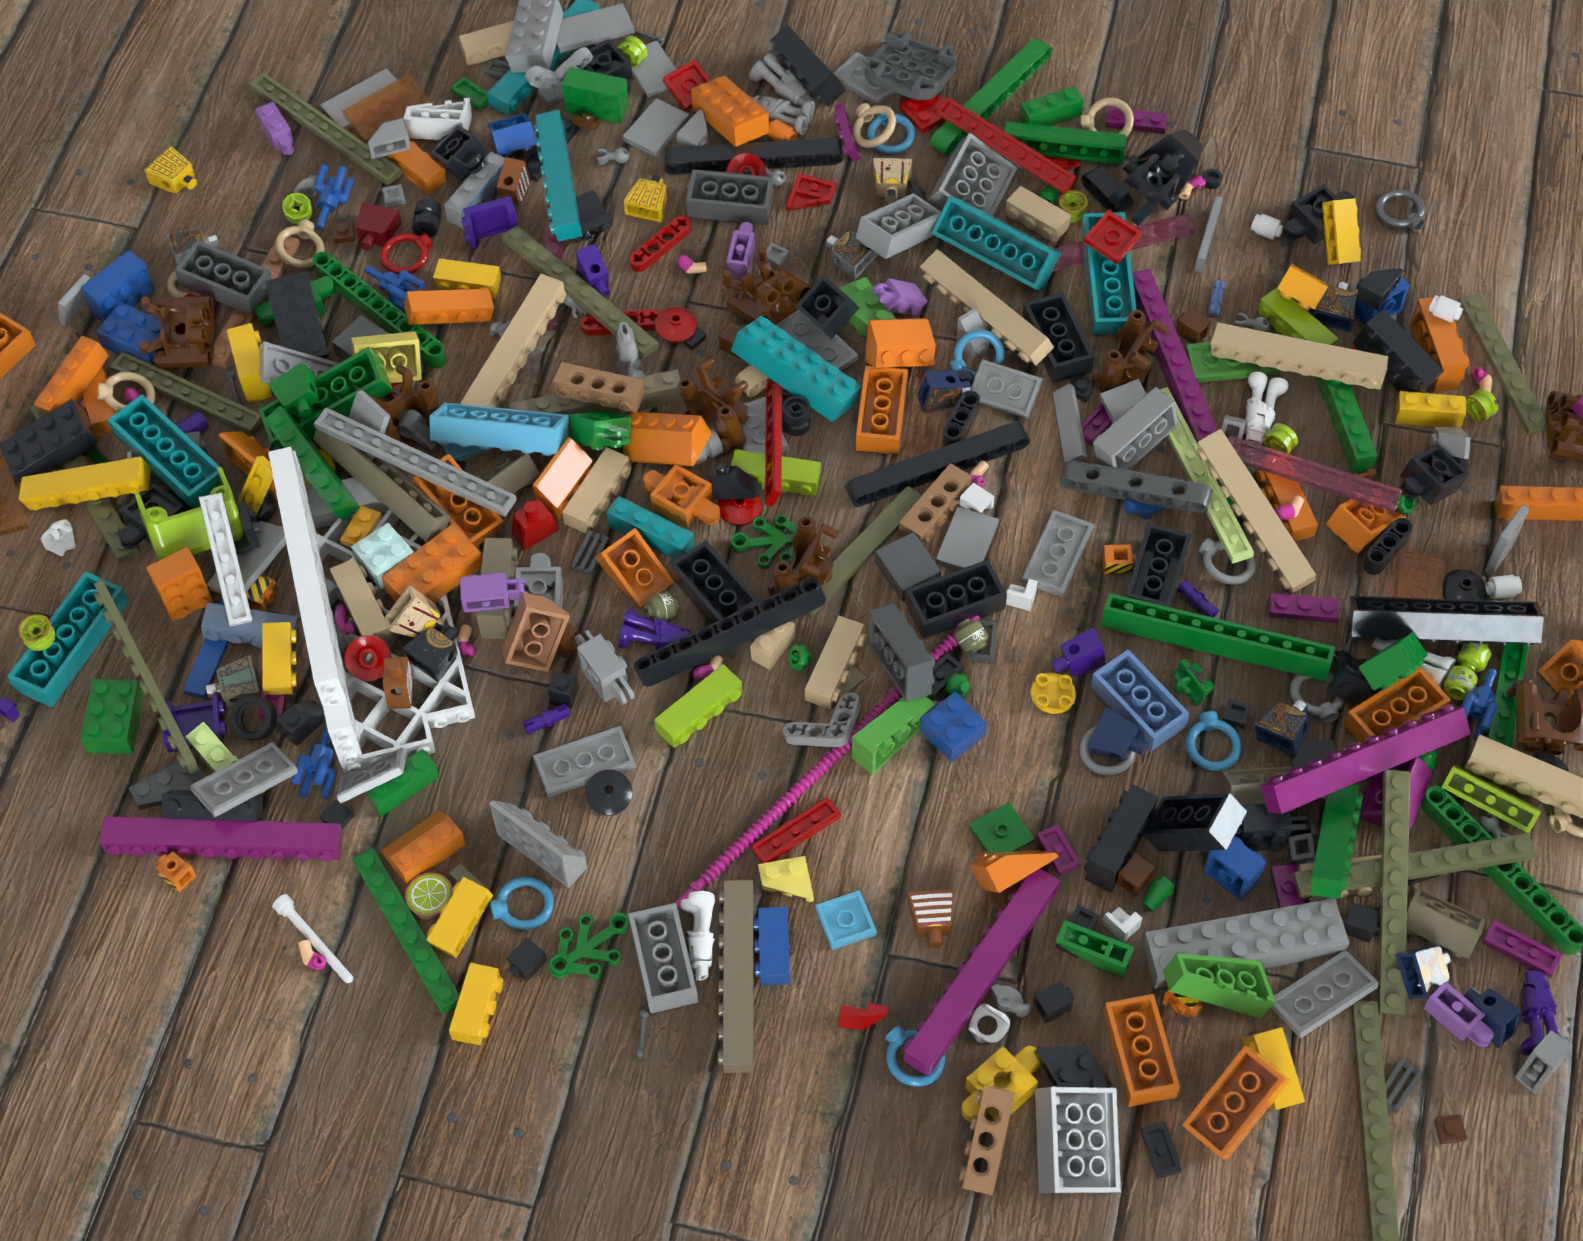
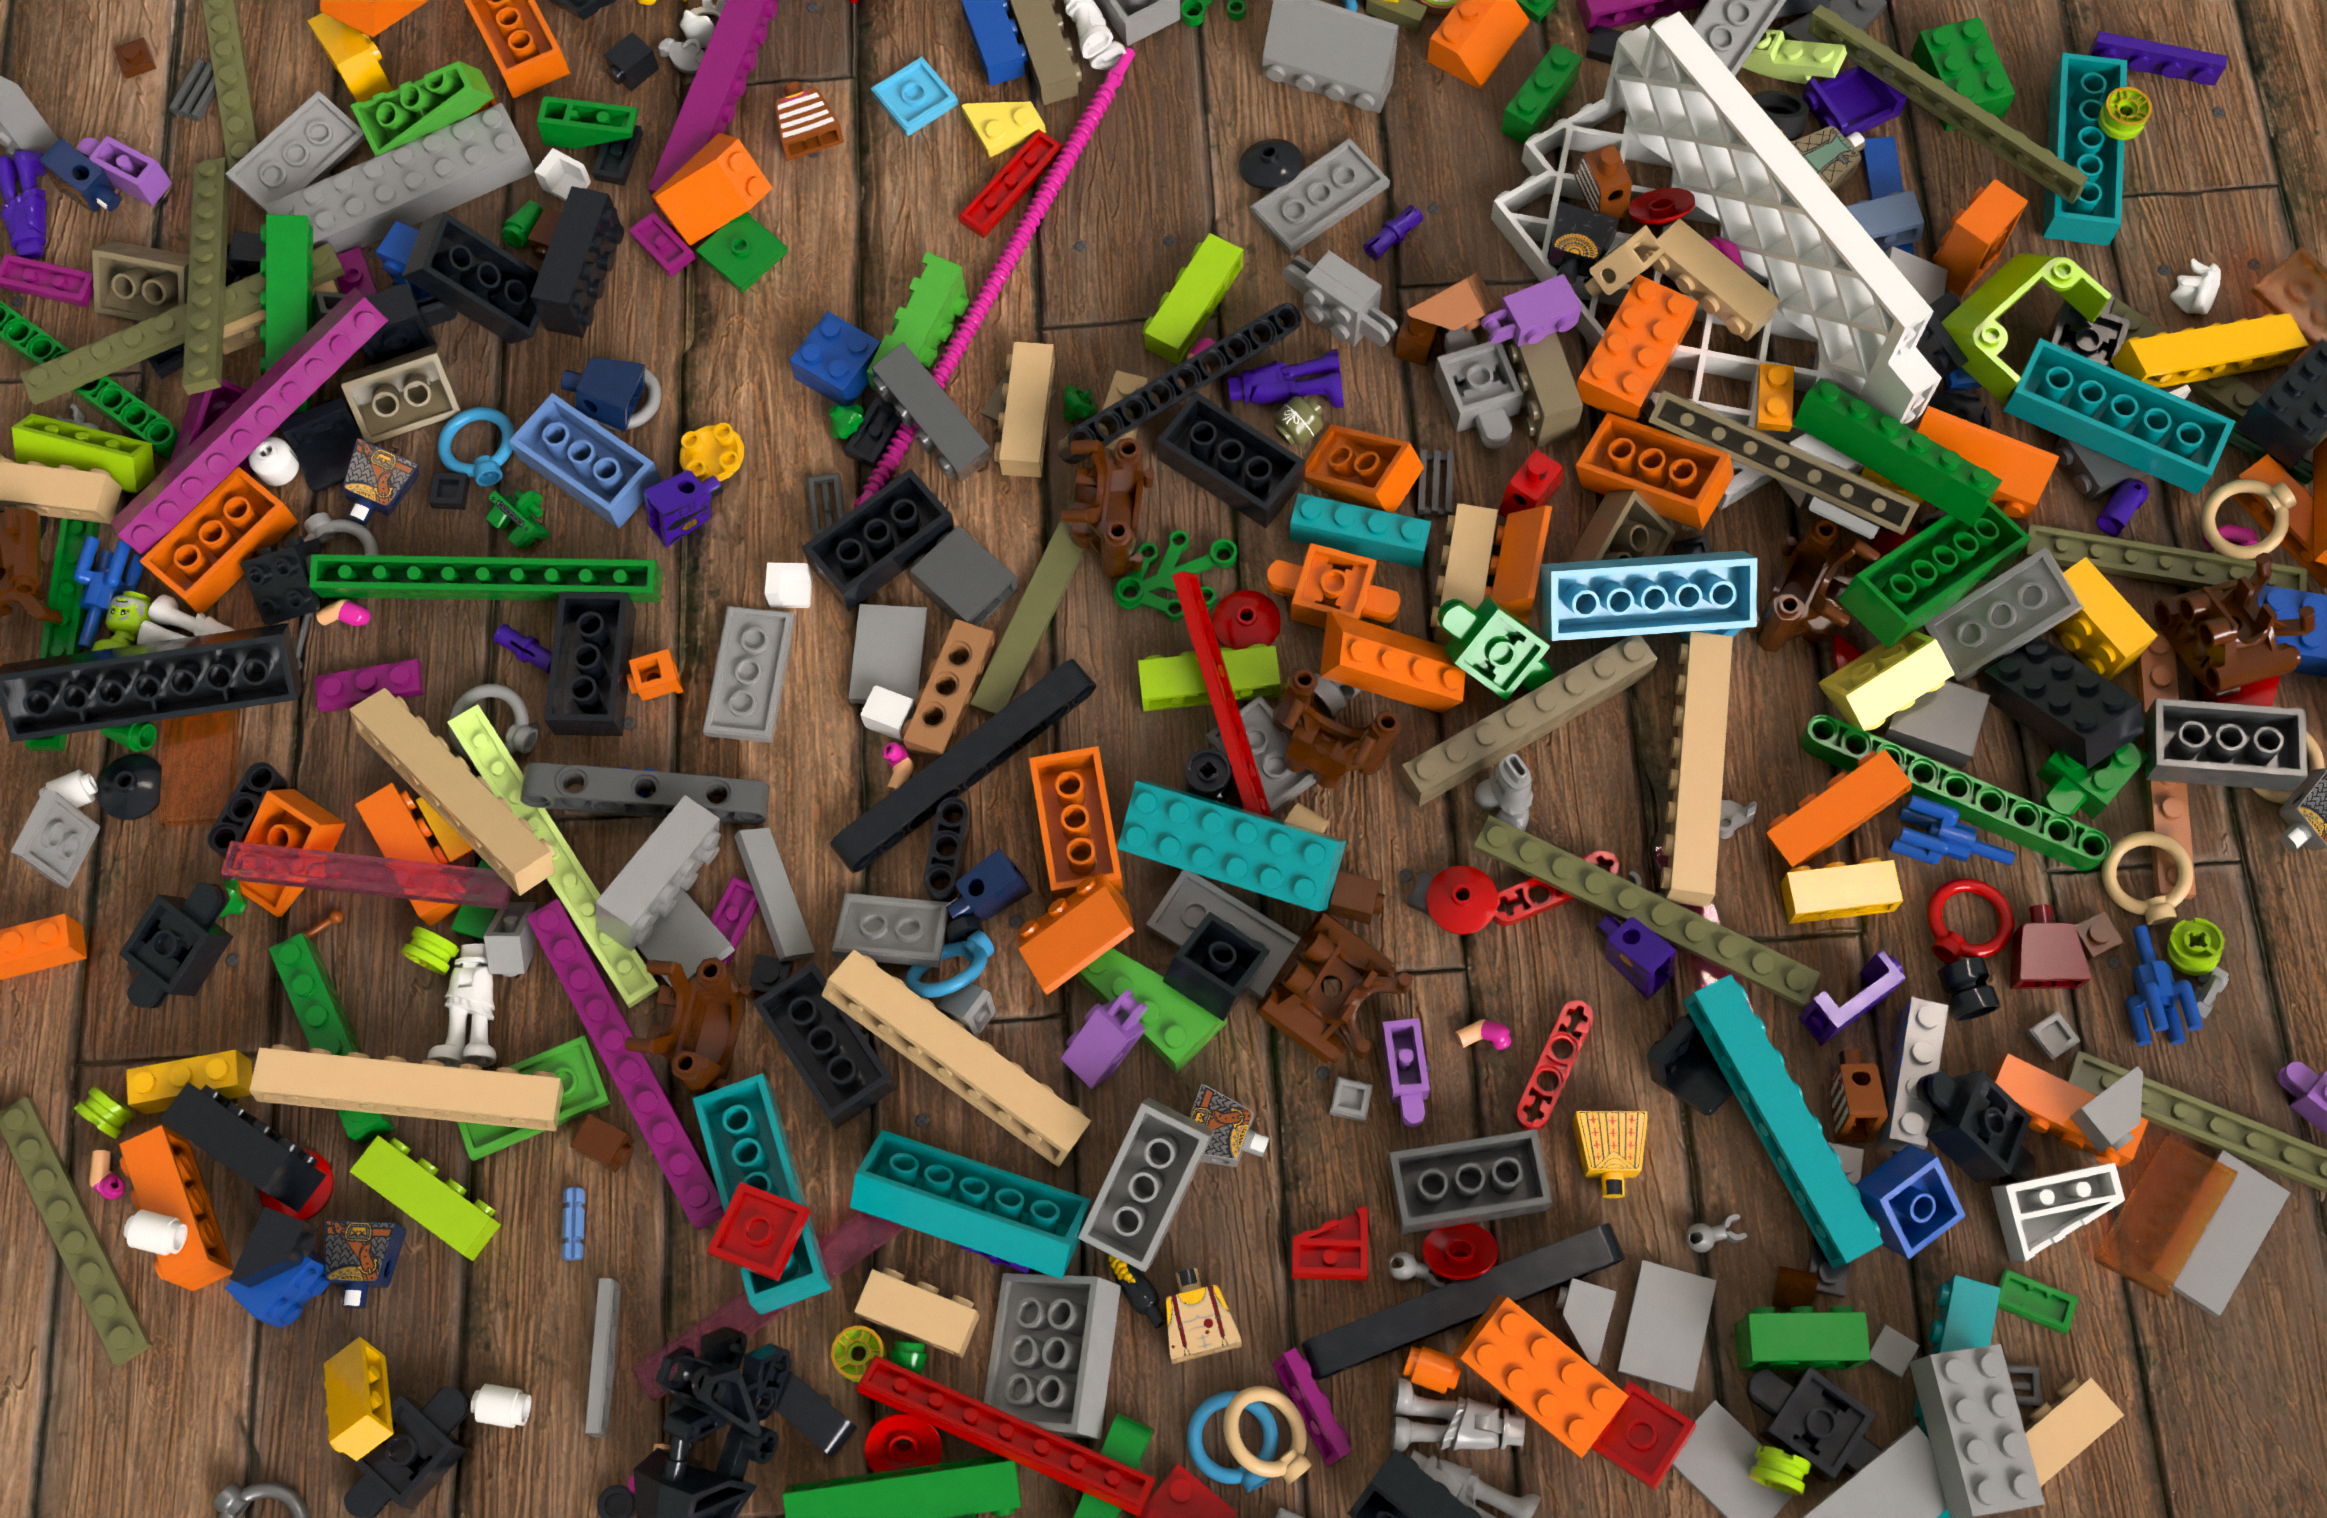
camera: 165 degrees right, 10 degrees up
(225, 559) = (1933, 263): white tile -> none
(257, 484) = (1955, 399): yellow plate -> none
(296, 390) = (1982, 543): green torso -> none
(371, 775) = (1575, 74): light grey tile -> none
(381, 553) = (1715, 352): light aqua brick -> none
(413, 427) = (1785, 577): dark grey piece -> none
(415, 462) = (1740, 465): light grey plate -> none
(552, 81) = (1893, 1350): light grey beam -> none
(563, 689) = (1386, 266): black brick -> none
(599, 387) = (1509, 710): medium nougat brick -> none
(733, 483) = (1259, 626): black slope -> none
(800, 732) = (1006, 306): light grey beam -> none
(971, 635) = (841, 483): olive head -> none
(1258, 323) = (497, 1185): light grey arm -> none
(1290, 510) = (396, 806): dark pink arm -> none
(1302, 287) = (417, 1263): light orange slope -> none
(1394, 662) = (219, 575): green brick -> none
(1423, 970) = (166, 206): torso -> none
(1452, 440) = (150, 1017): light grey slope -> none

